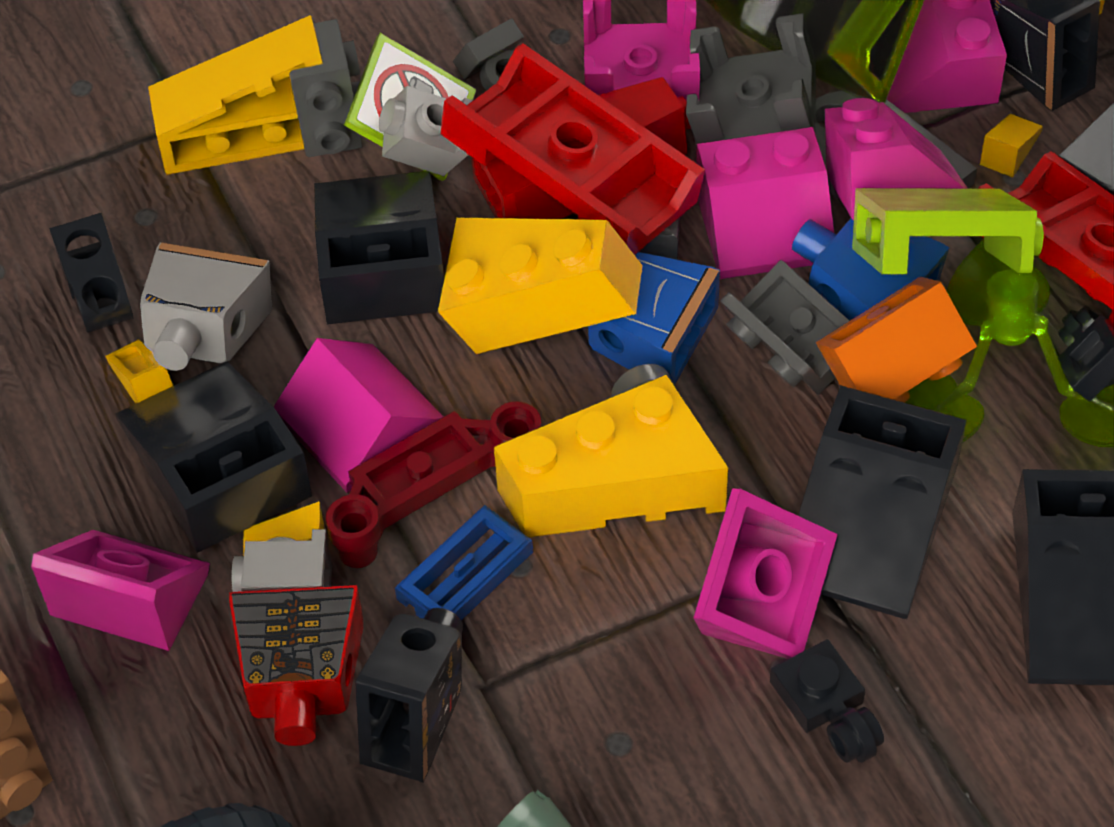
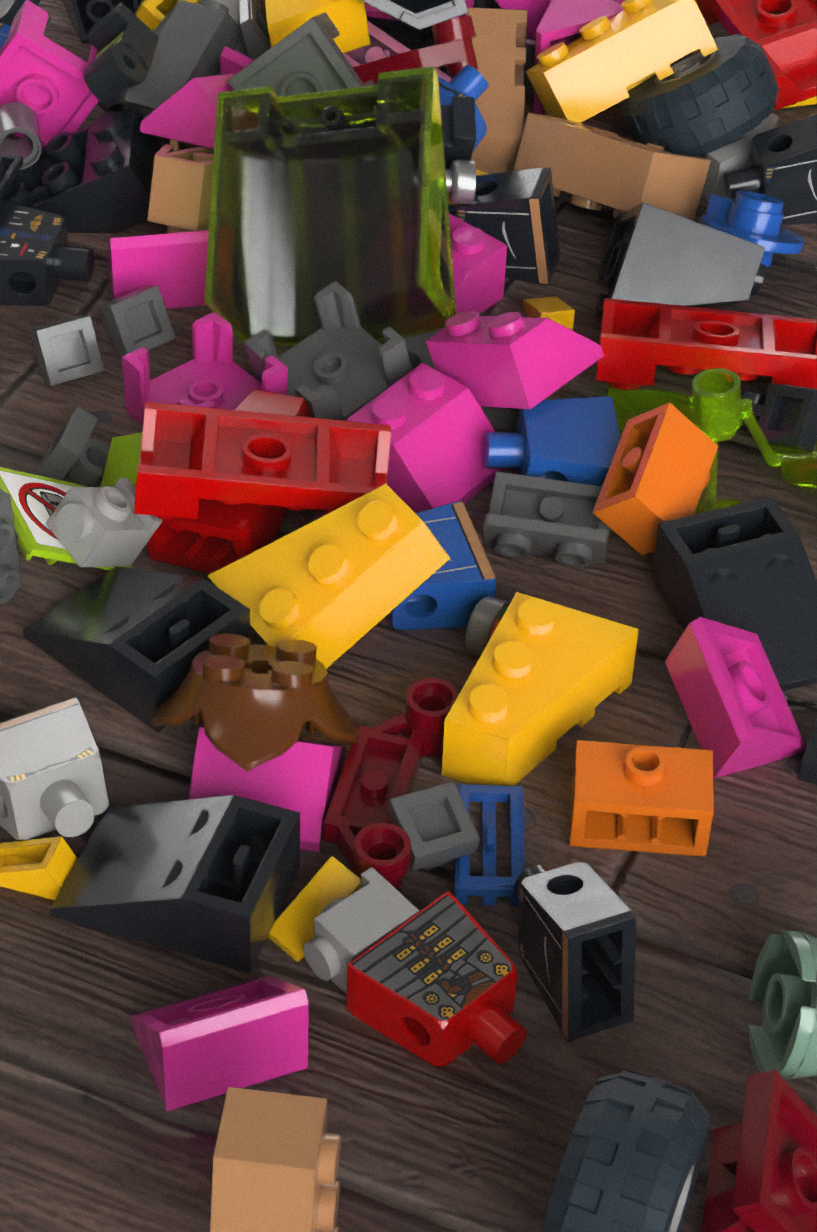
camera: 45 degrees left, 10 degrees down
(379, 335) = (257, 698): none -> reddish brown brick
(413, 526) = (435, 824): none -> dark grey tile
(604, 610) = (641, 798): none -> orange brick
(891, 215) = (607, 375): lime panel -> none

